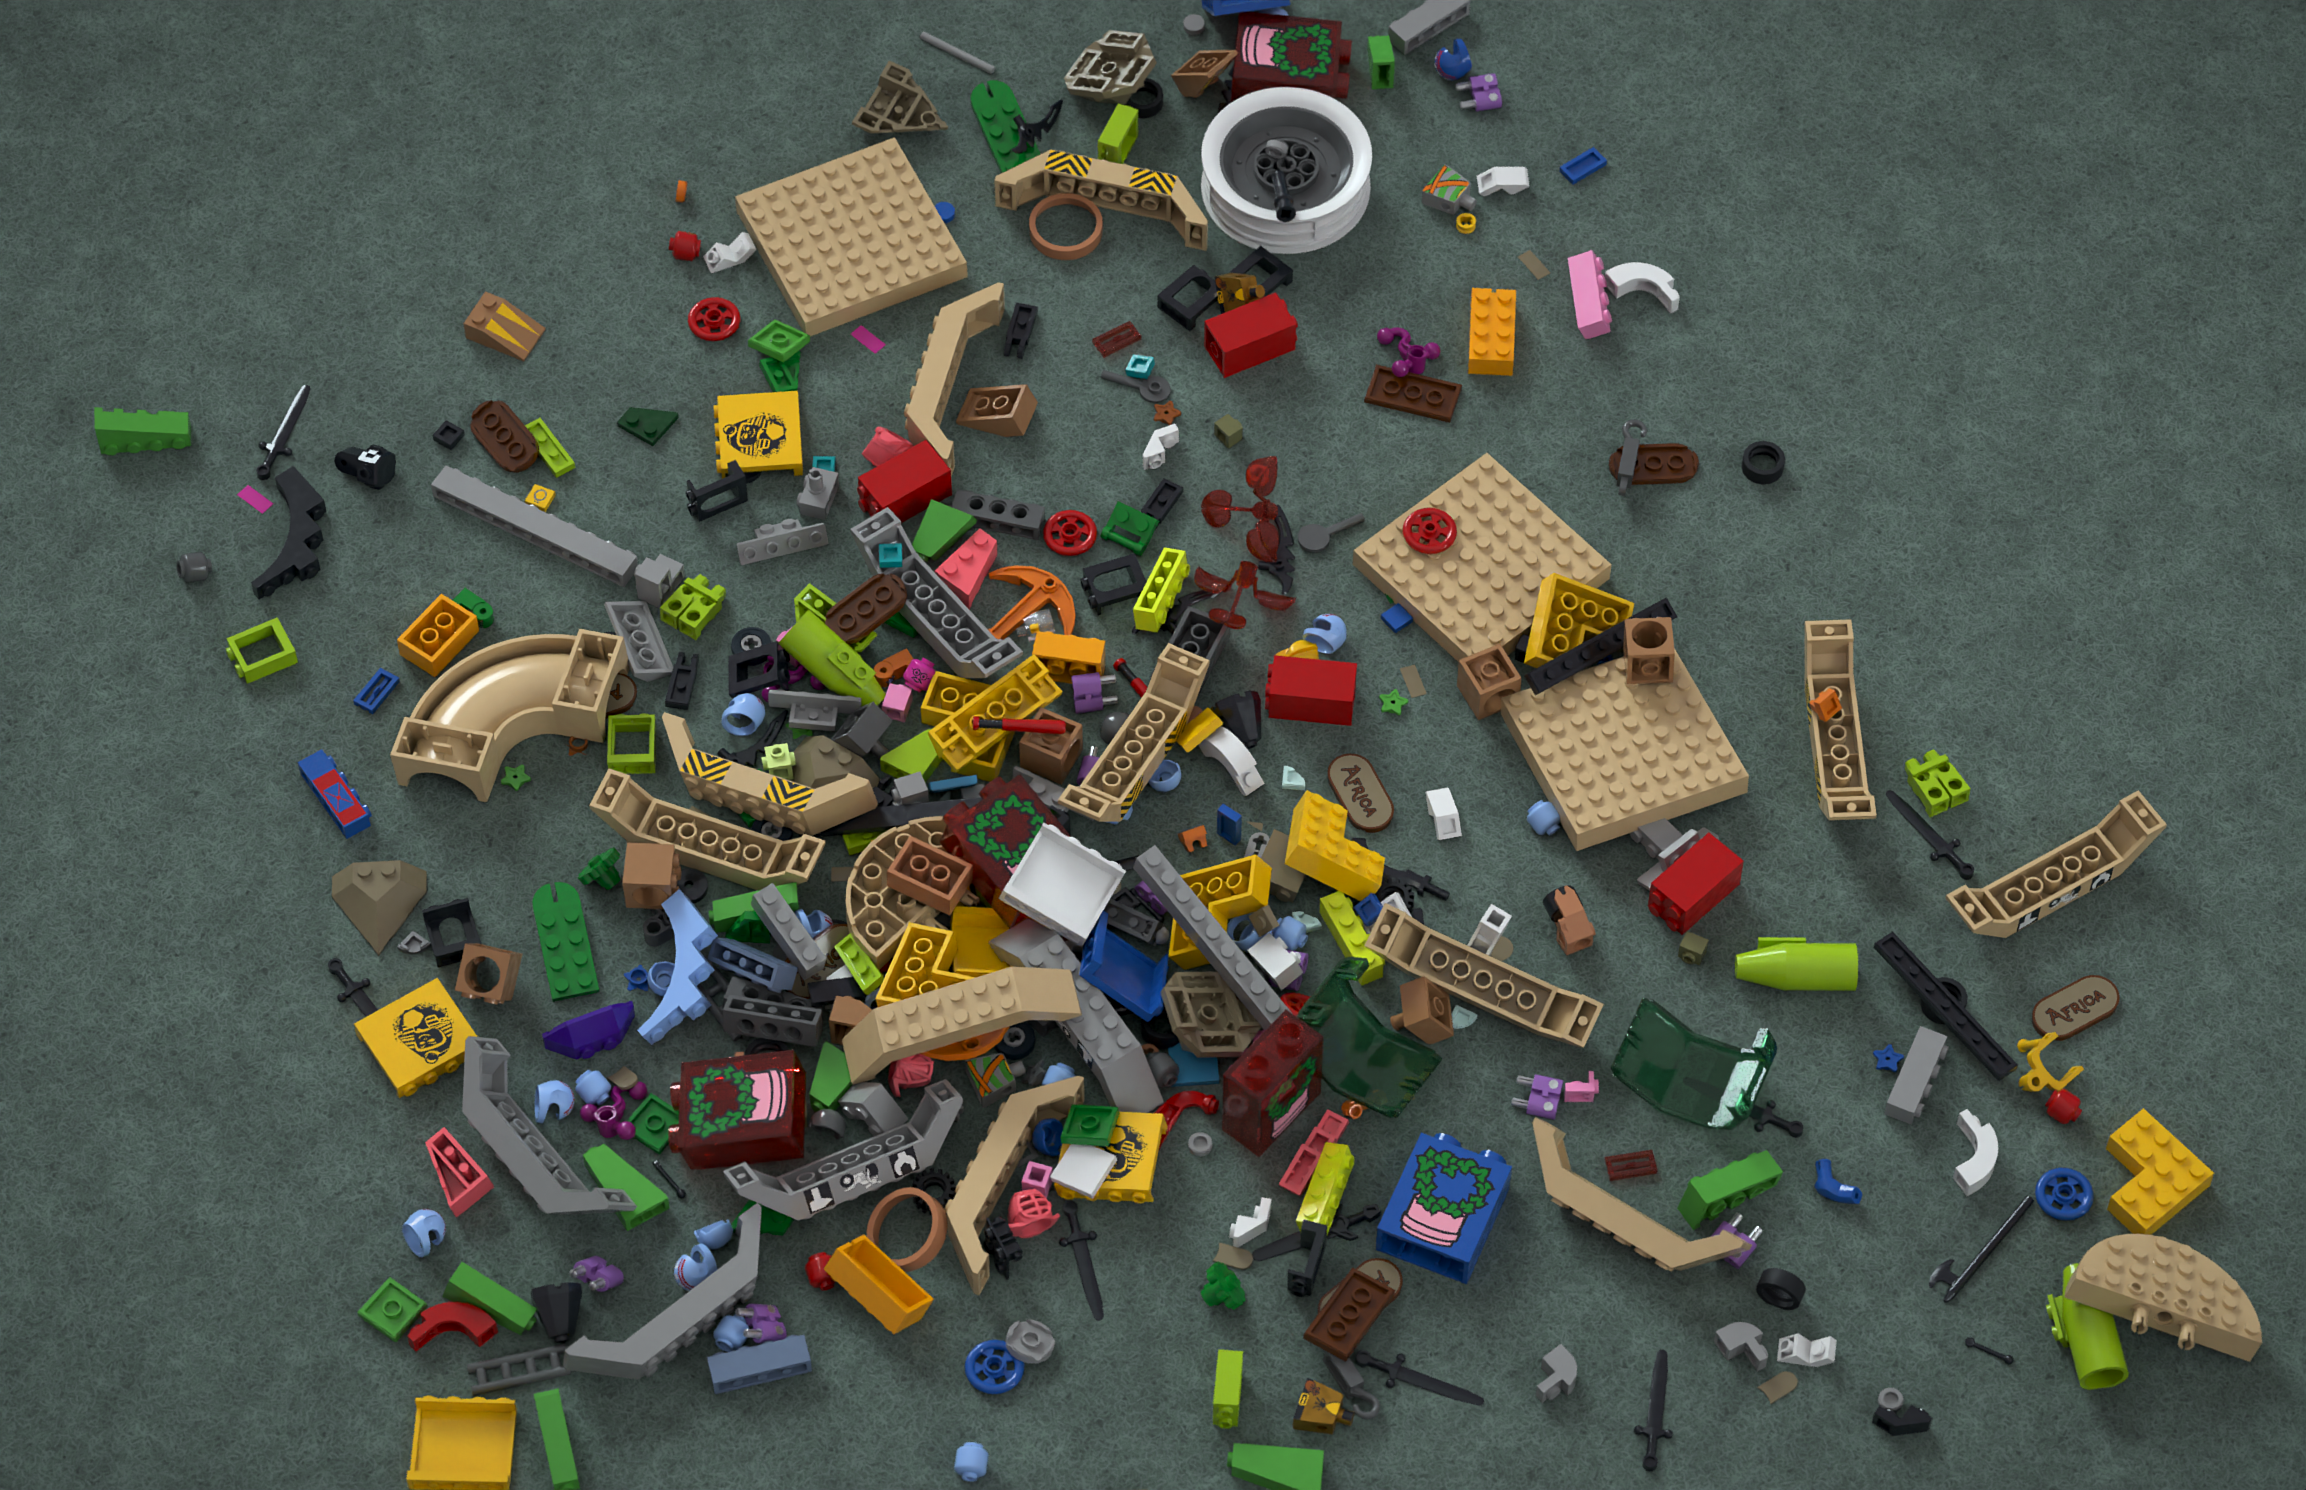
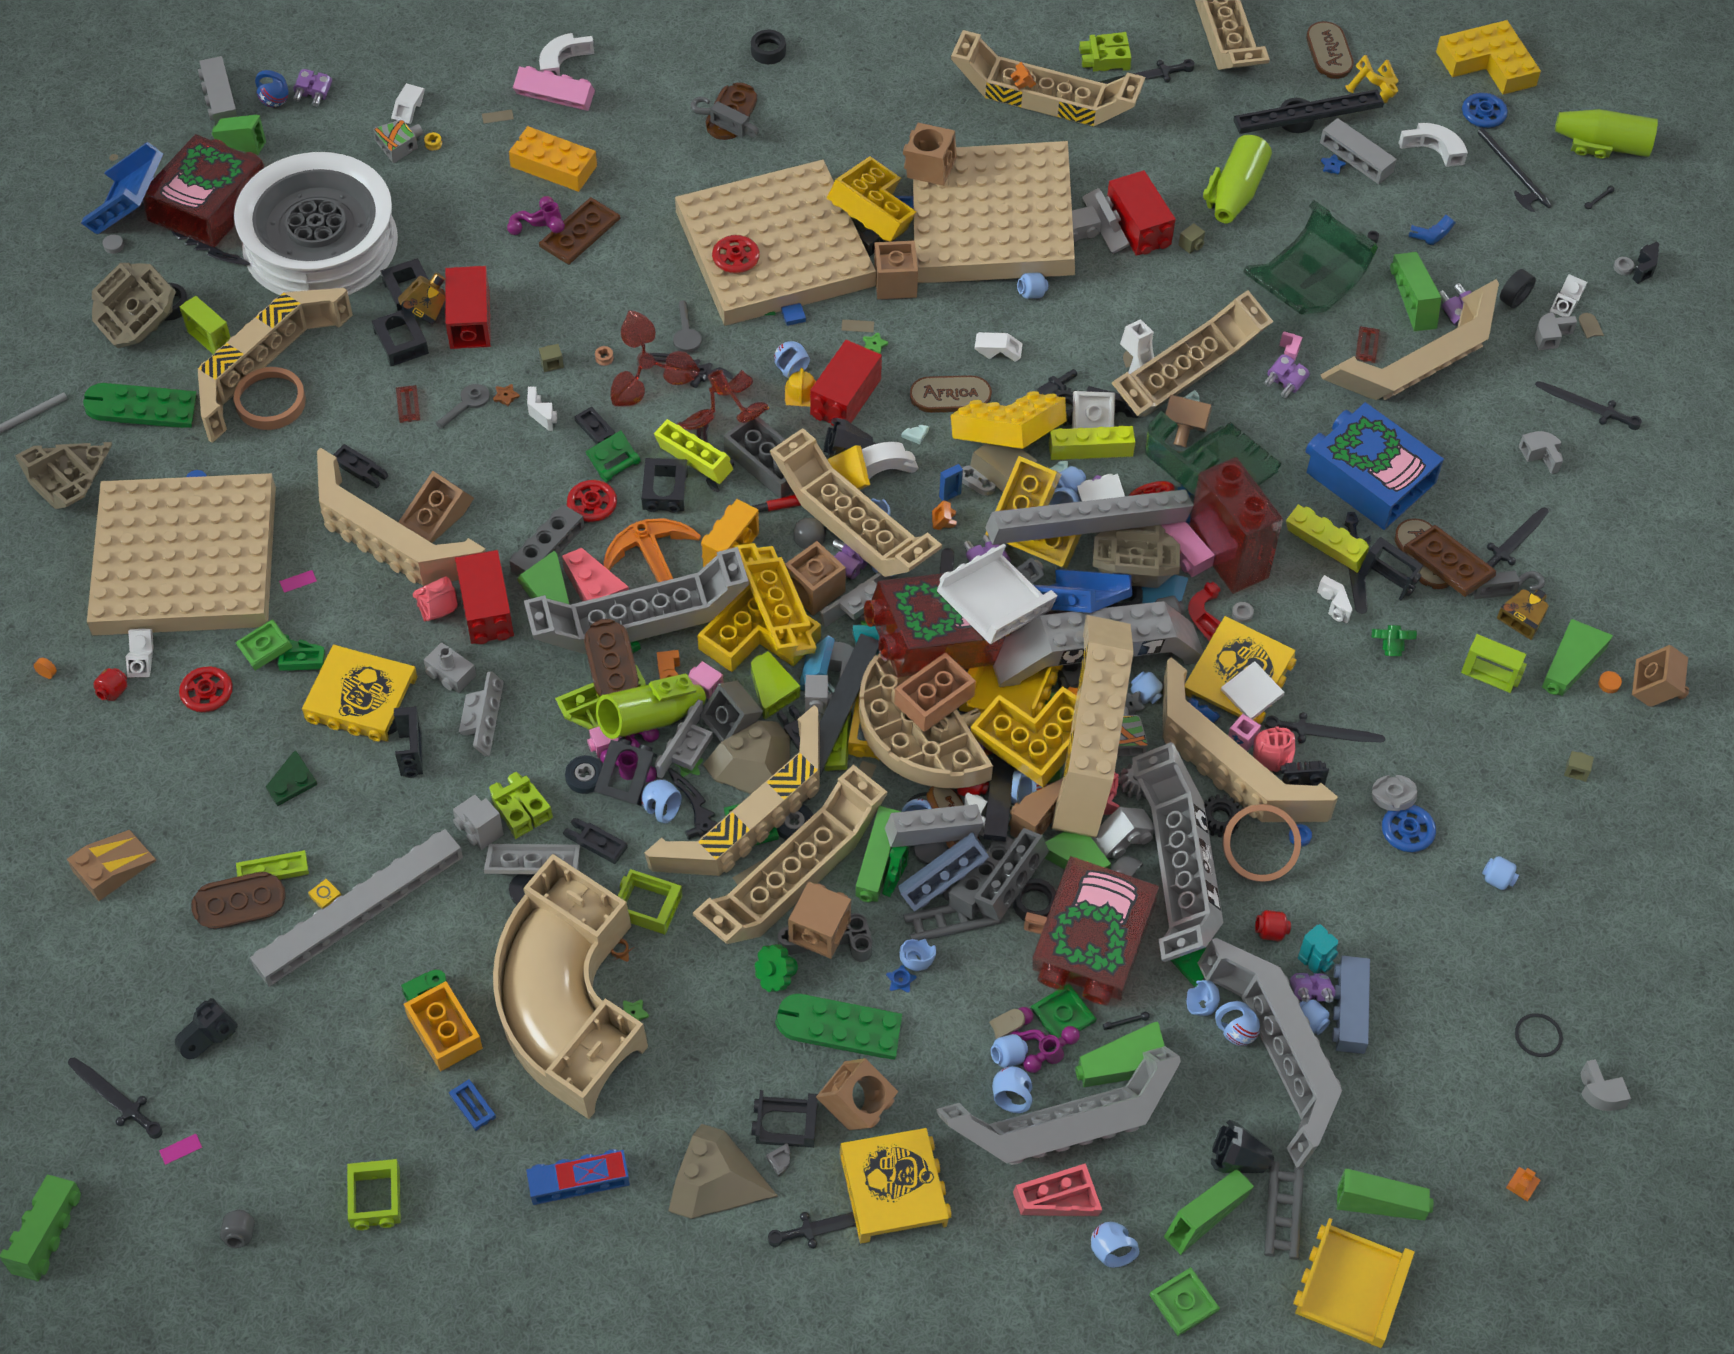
camera: 70 degrees left, 0 degrees up
(303, 535) = (223, 1103): black arch -> none
(448, 435) = (208, 948): black plate -> none
(453, 1317) = (1222, 1234): red arch -> none
(591, 1032) = (950, 1033): dark purple wedge -> none
(596, 1271) = (1215, 1103): medium lavender piece -> none
(691, 968) = (951, 938): light blue arch -> none
(779, 761) = (727, 789): yellowish green brick -> none
(804, 1313) = (1318, 950): none -> teal brick
(824, 462) = (417, 656): teal tile -> none
(859, 964) = (983, 787): lime plate -> none
(878, 1284) = (1311, 880): light orange piece -> none
(890, 555) = (570, 619): teal plate -> none
(919, 674) = (692, 649): dark pink head -> none
(944, 1271) = (1305, 834): none -> blue tile
(1022, 725) = (802, 580): red piece -> none
(1029, 131) = (155, 382): black piece -> none
(1038, 621) = (681, 551): clear piece -> none
(1088, 690) = (768, 533): medium lavender piece -> none
(1089, 1125) = (1215, 671): green plate -> none
(1140, 366) = (449, 395): teal plate -> none
(1202, 71) = (178, 242): medium nougat slope -> none
(1234, 1256) = (1357, 625): dark tan piece -> none
(1263, 920) = (1070, 481): dark tan plate -> none
(1276, 149) = (301, 216): light grey tile -> none
(1283, 201) = (365, 224): black pin -> none
(1305, 1161) = (1296, 549): coral slope -> none
(1369, 909) = (1077, 417): blue tile -> none
(1572, 924) = (1152, 303): nougat piece -> none
(1582, 165) = (422, 53): blue tile -> none
(1590, 651) = (902, 189): black tile -> none
(2063, 1106) = (1414, 82): red head -> none
(2169, 1290) = (1600, 74): tan brick -> none

